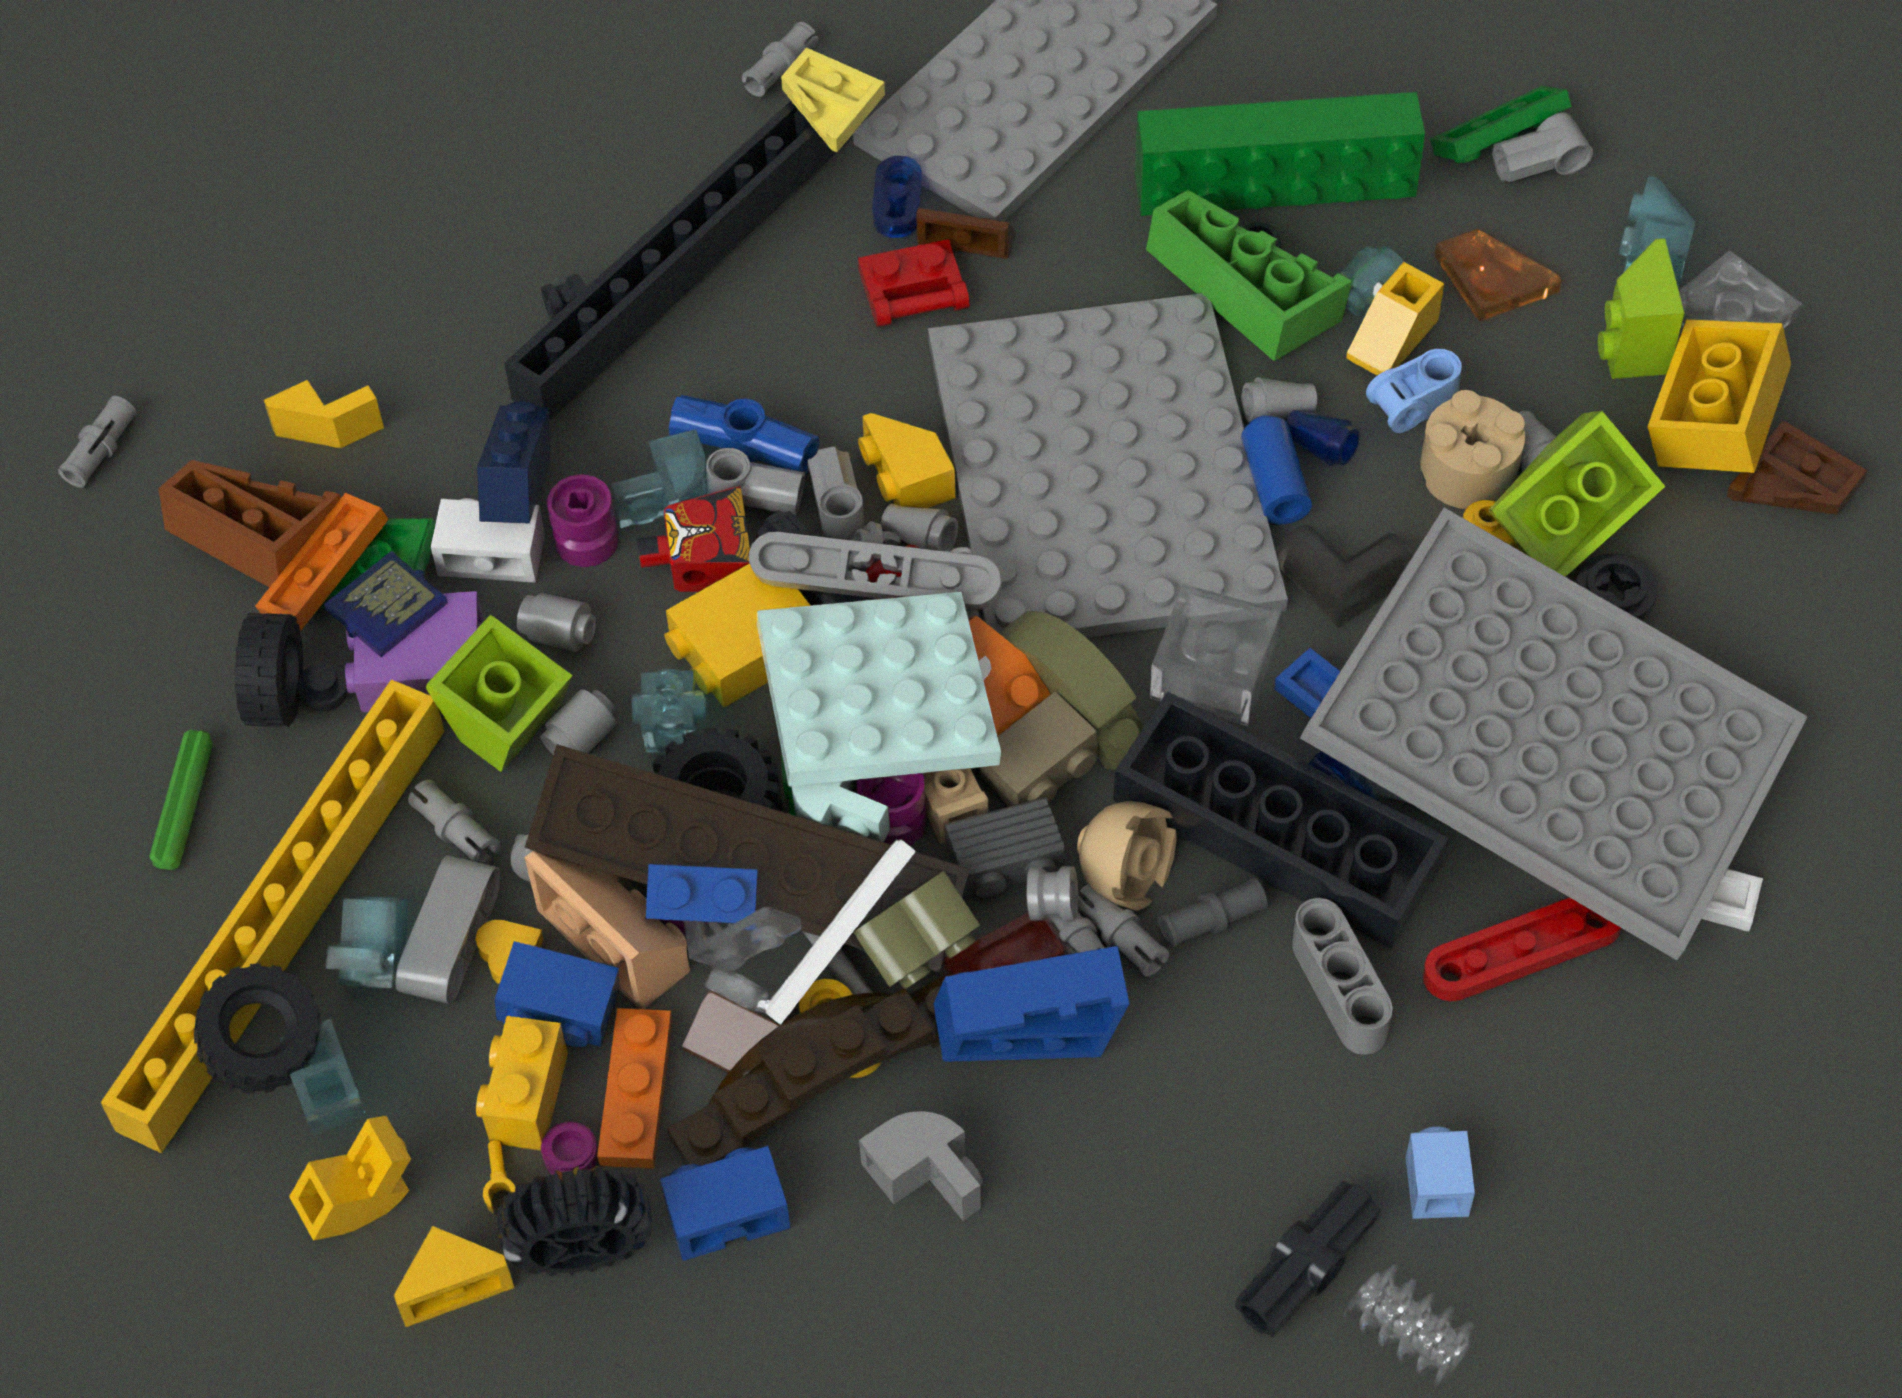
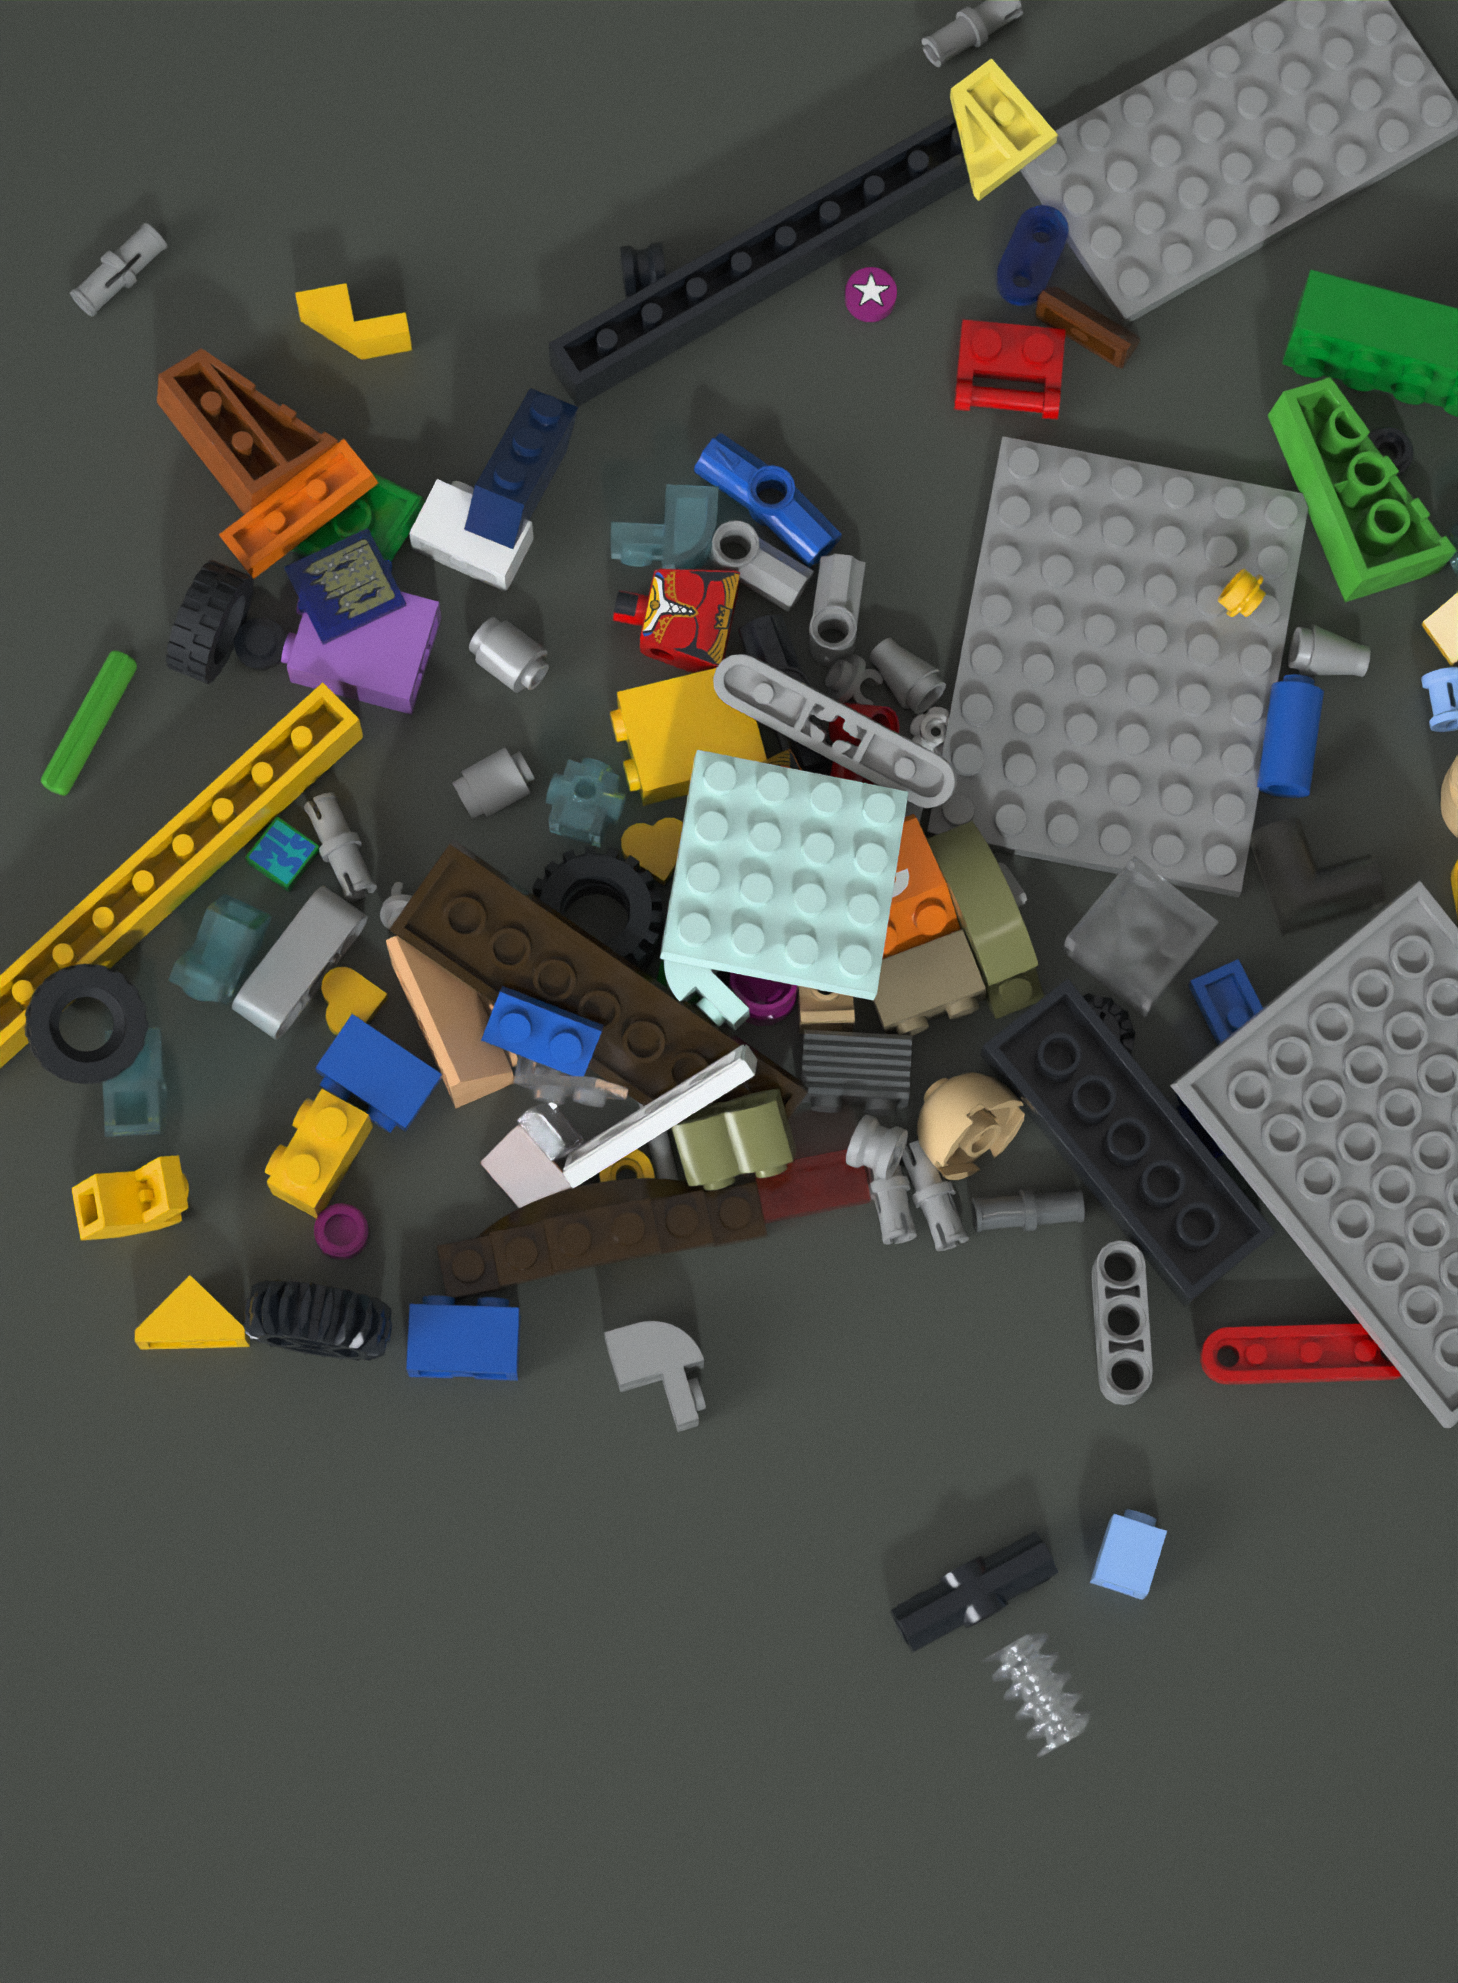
camera: 15 degrees right, 20 degrees up
(401, 848) = (282, 854): none -> tile
(498, 692) = (423, 726): lime slope -> none
(498, 1175) = (268, 1234): yellow hand -> none
(582, 520) = (573, 562): magenta wheel -> none
(635, 1088) = (422, 1189): orange plate -> none
(754, 720) = (654, 846): none -> yellow tile
(771, 266) = (870, 294): none -> magenta tile
(908, 462) = (924, 594): yellow slope -> none
(1033, 1008) = (811, 1259): blue wedge -> none
(1185, 369) = (1242, 594): none -> yellow plate
(1324, 436) = (1356, 714): clear blue cone -> none

